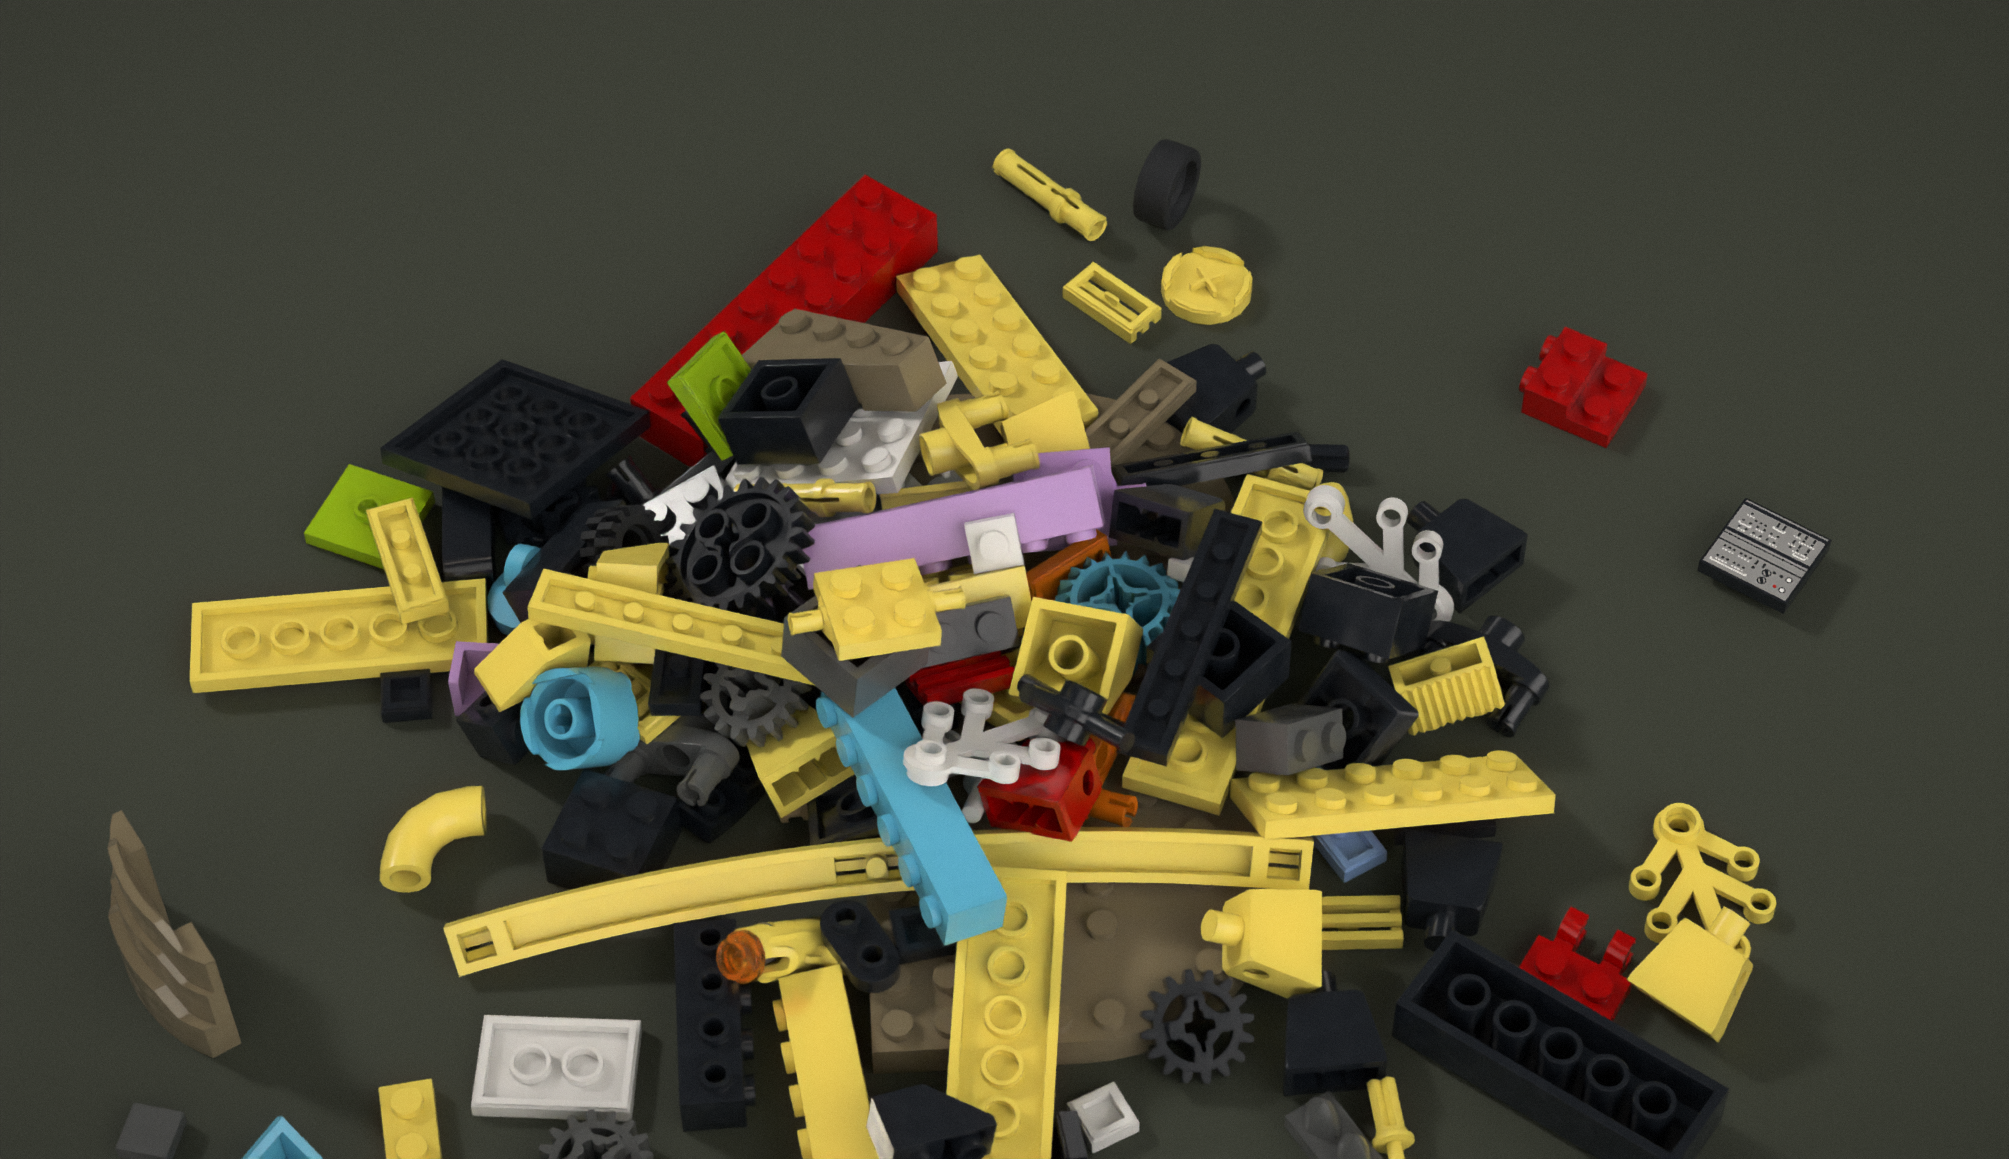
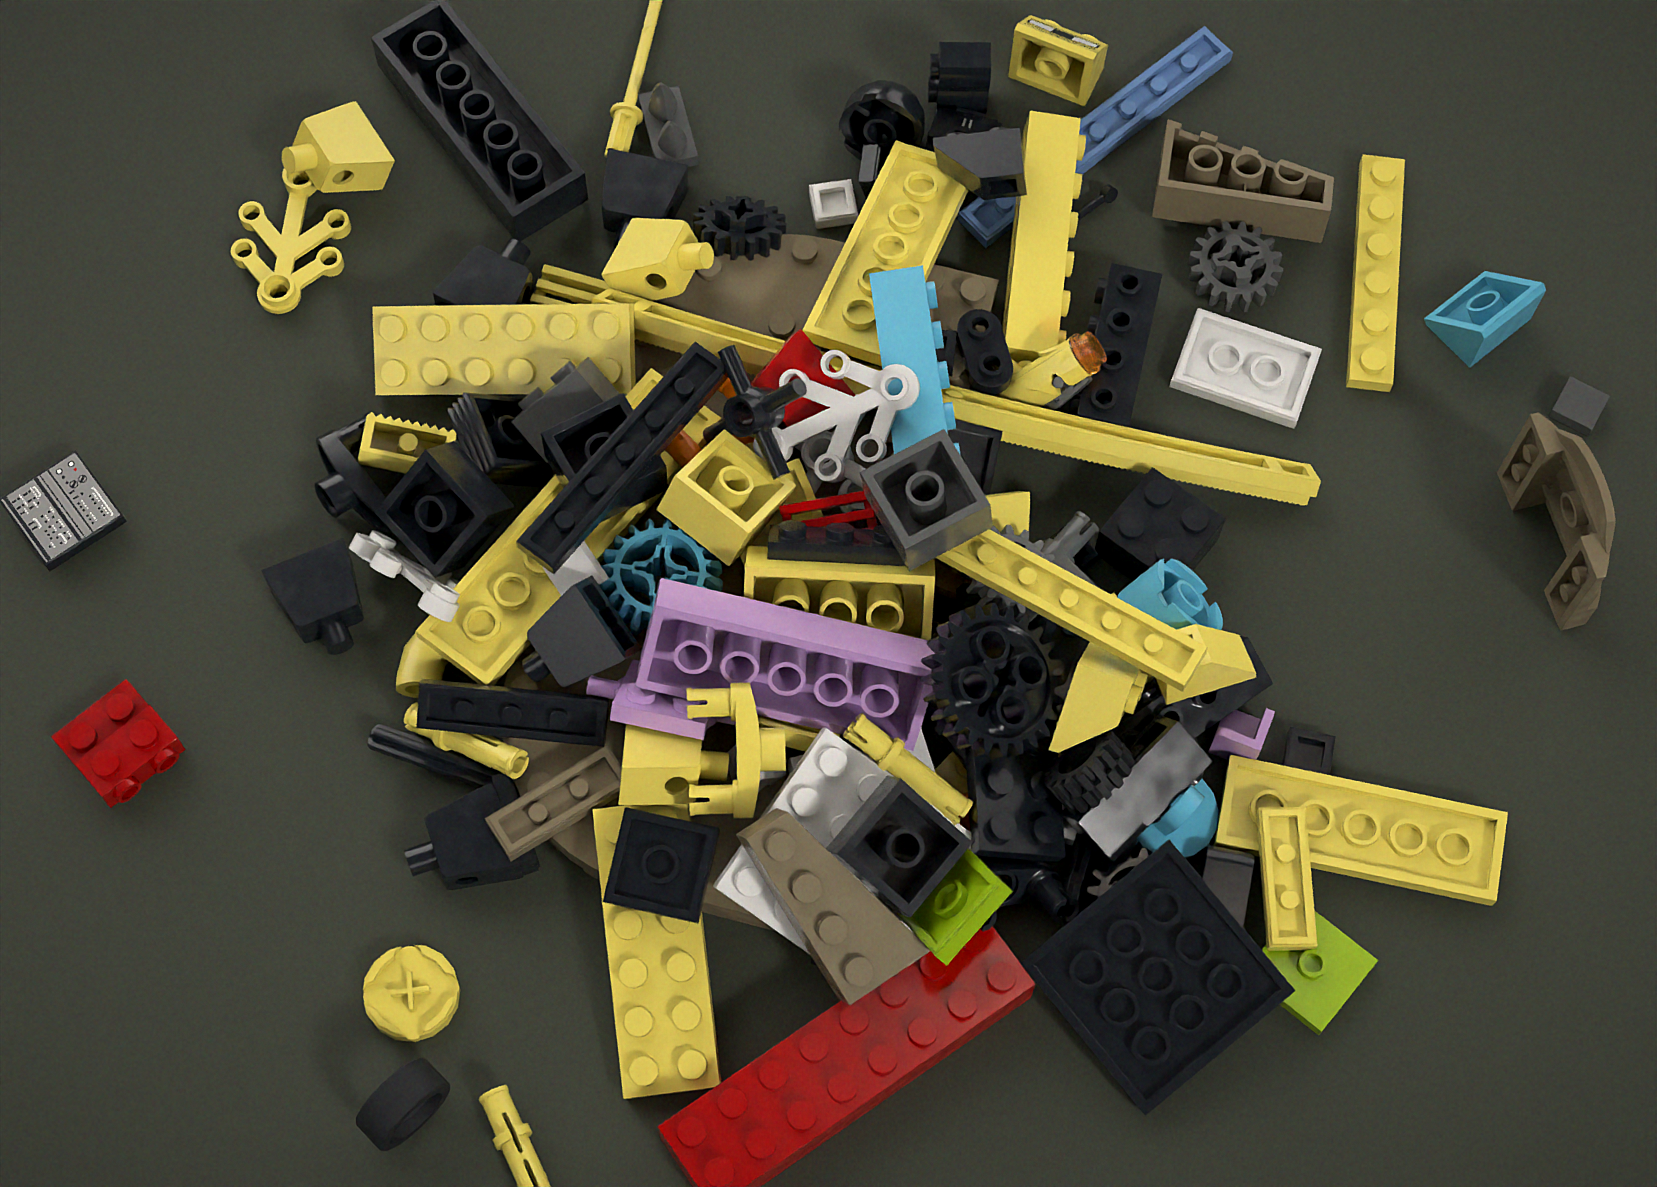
camera: 165 degrees left, 15 degrees up
(425, 831) = (1317, 597): light yellow cylinder -> none
(876, 609) = (907, 482): light yellow plate -> none
(994, 543) = (764, 594): white plate -> none
(1019, 368) = (661, 865): none -> black tile
(1105, 306) = (531, 1036): light yellow tile -> none
(1590, 983) = (429, 197): red plate -> none

